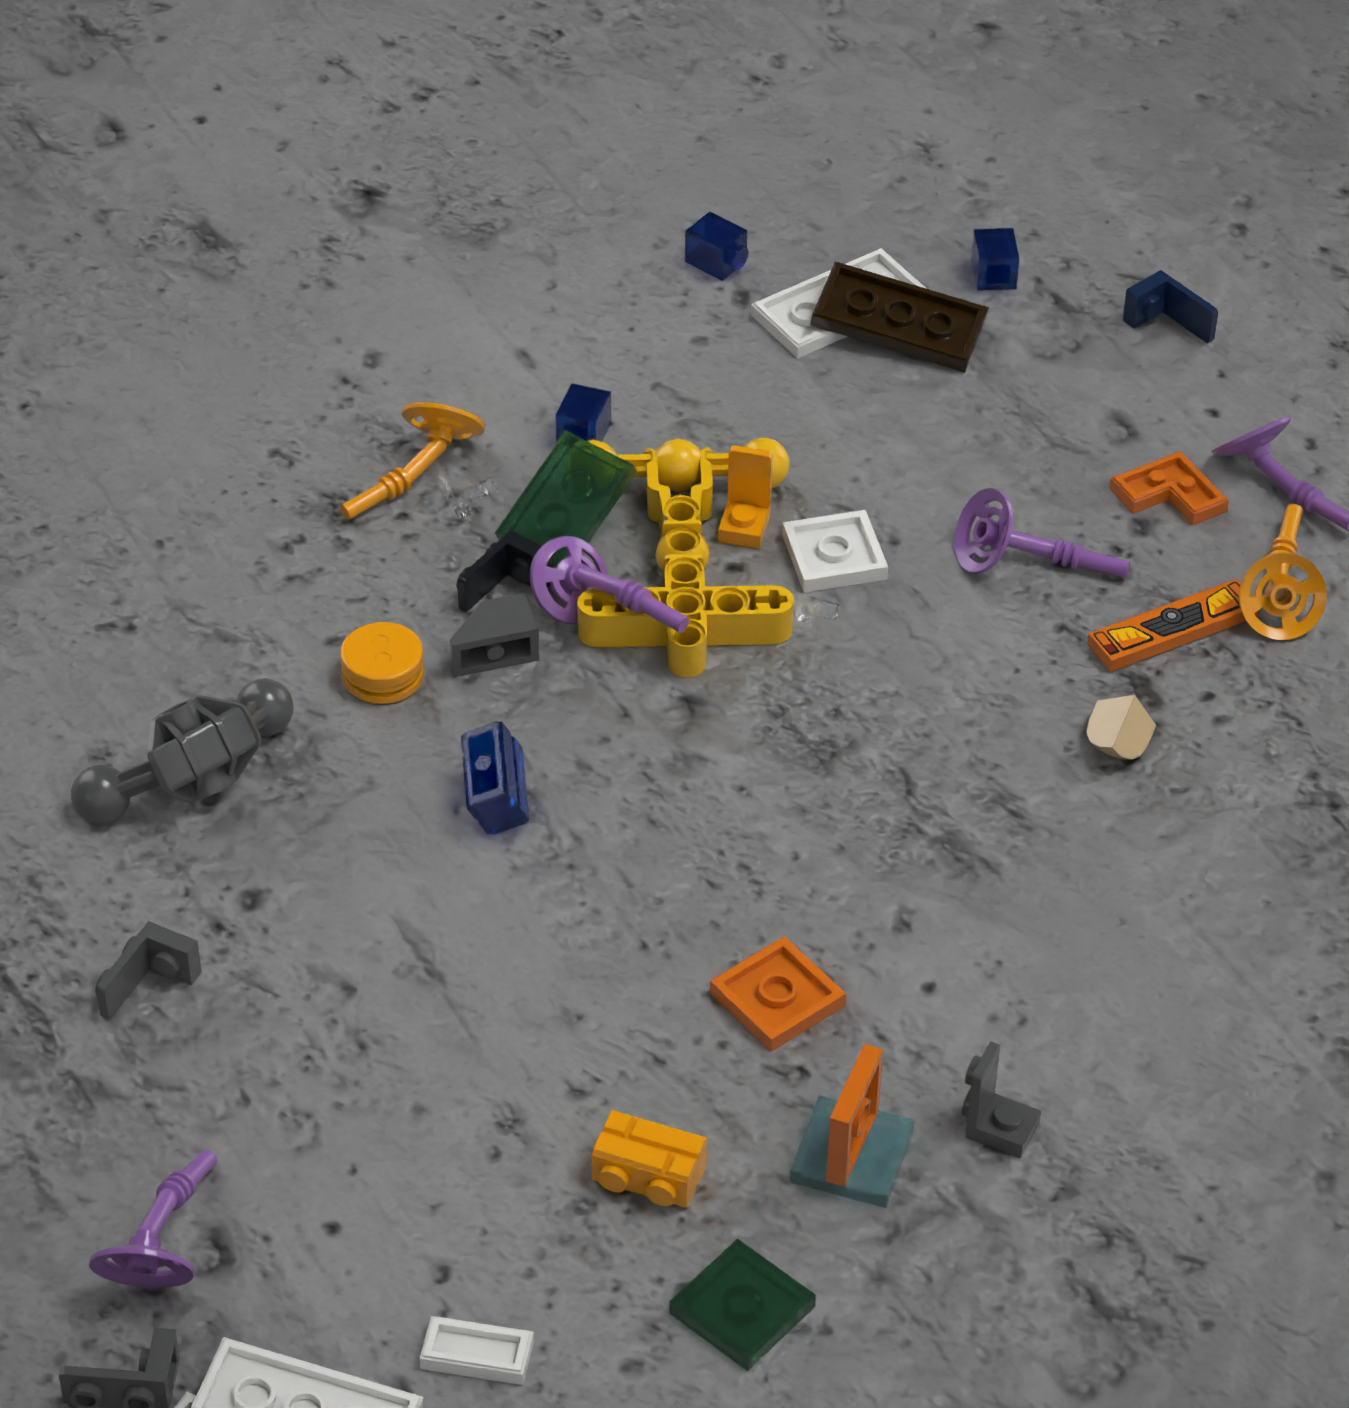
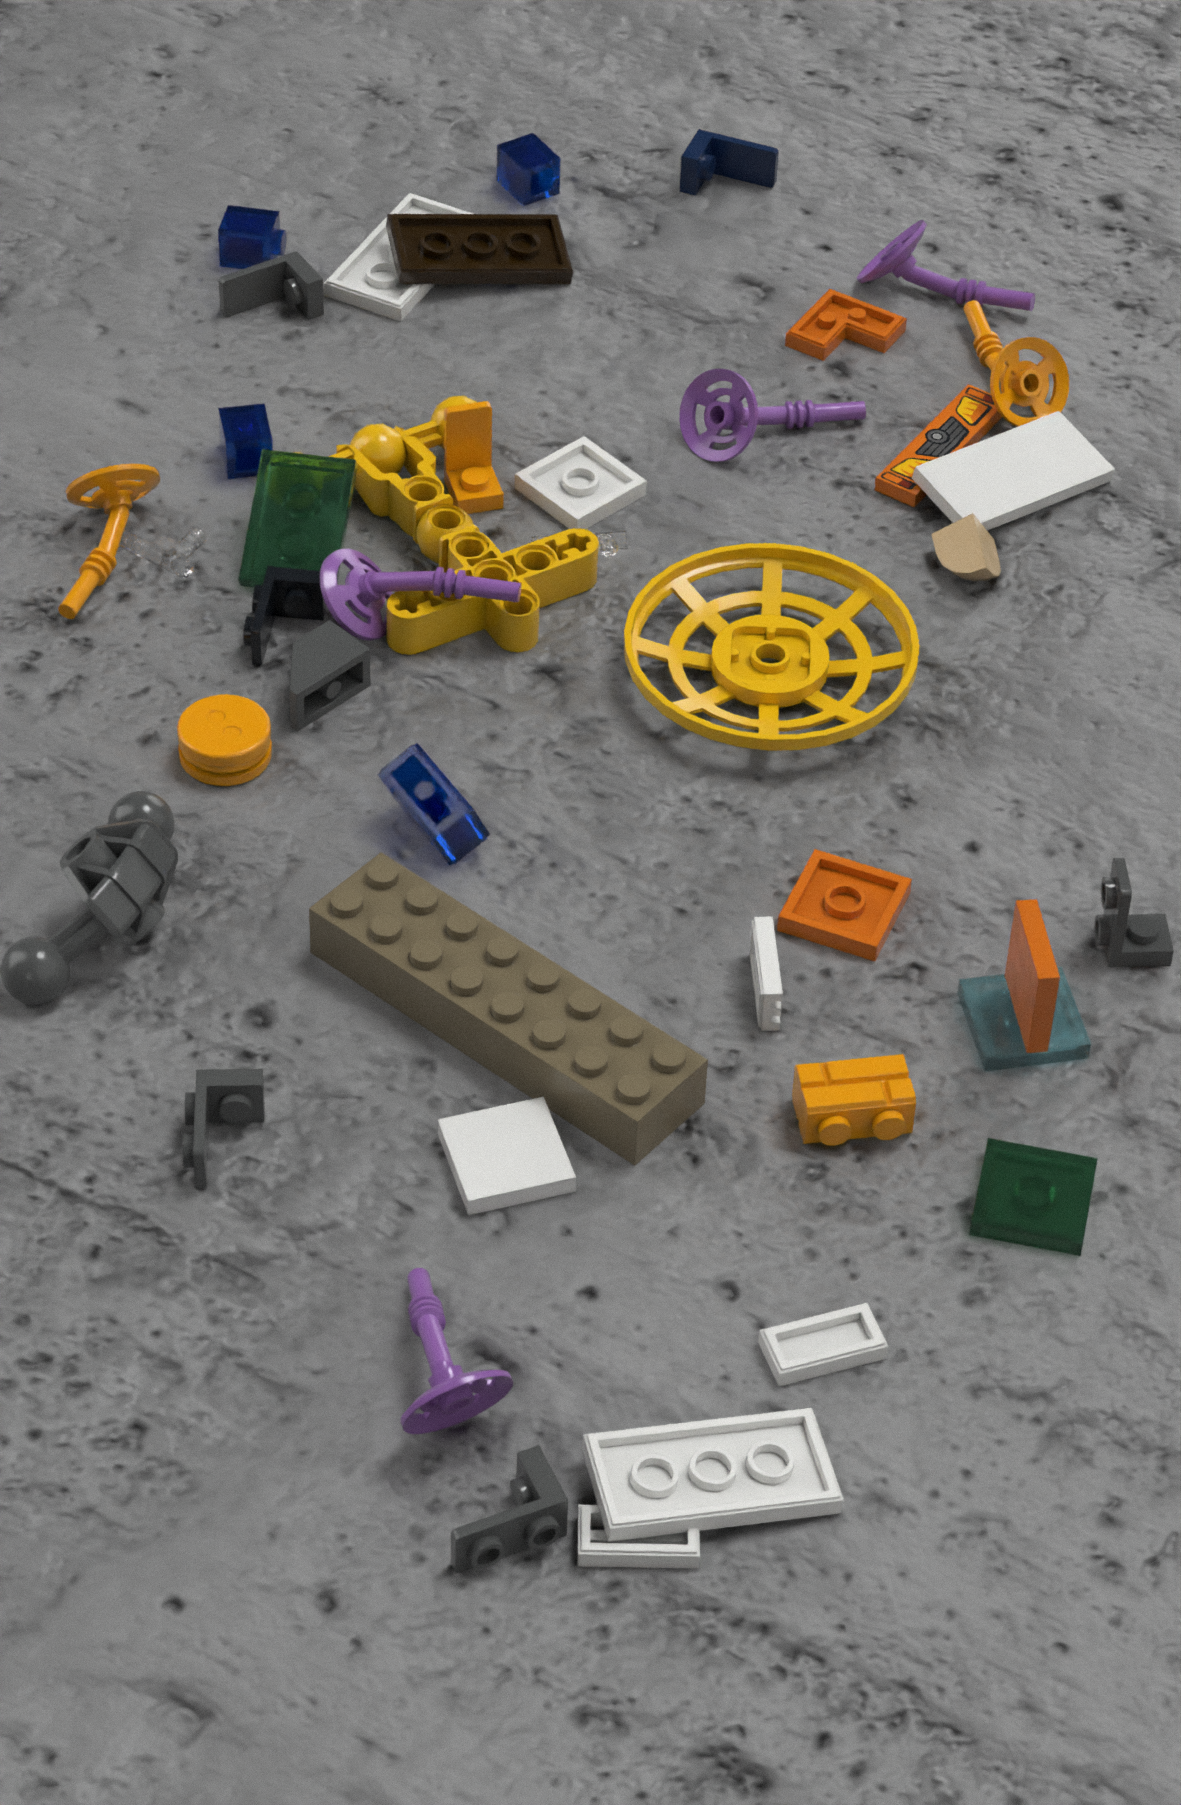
camera: 30 degrees left, 0 degrees up
(347, 1089) = (506, 1155): none -> white tile
(432, 971) = (509, 1007): none -> dark tan brick
(659, 1025) = (765, 973): none -> white tile
(701, 289) = (272, 280): none -> dark grey bracket
(870, 736) = (797, 647): none -> yellow dish
(1214, 672) = (1014, 472): none -> white tile

